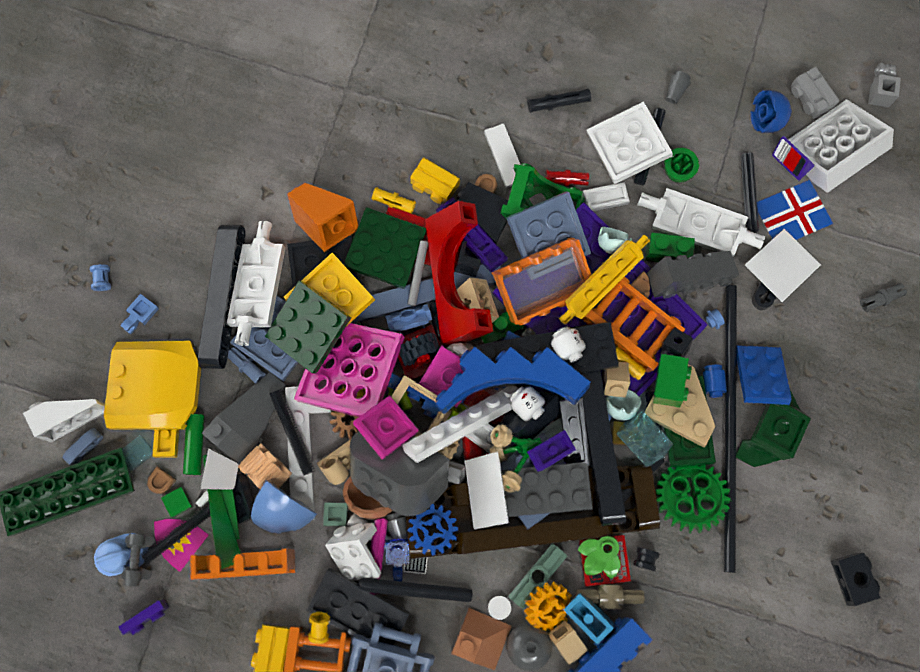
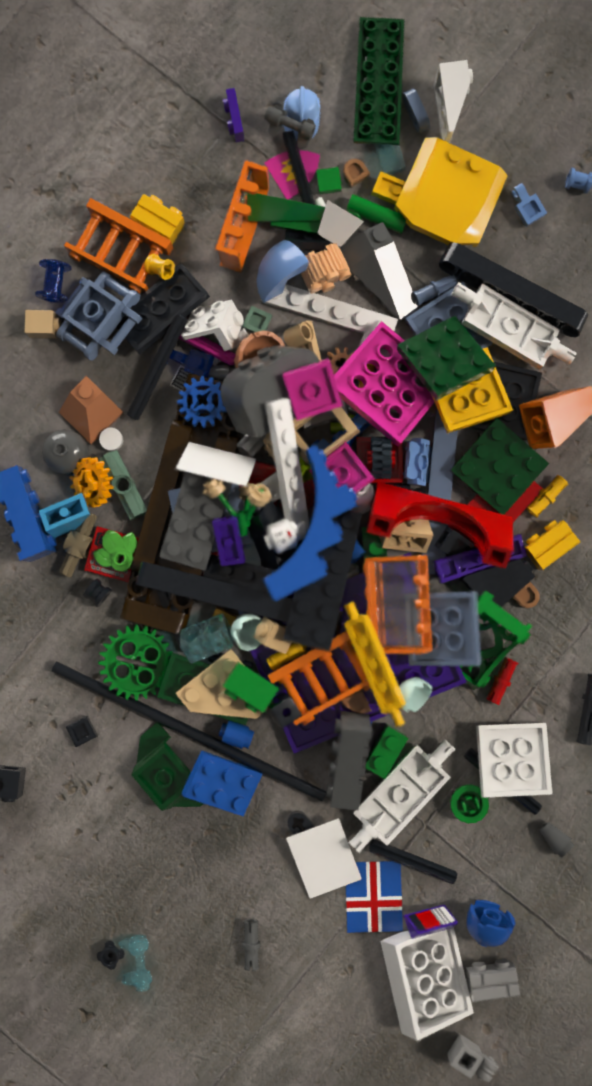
camera: 120 degrees right, 10 degrees up
(291, 433) = (350, 307): black axle -> none
(417, 275) = (461, 489): light grey piece -> none
(502, 152) = (556, 627): white tile -> none
(567, 642) = (53, 486): tan brick -> none
(568, 344) = (321, 597): white head -> none
(606, 196) = (466, 712): white tile -> none
(714, 319) = (297, 763): medium blue plate -> none
(775, 522) = (81, 731): none -> black tile

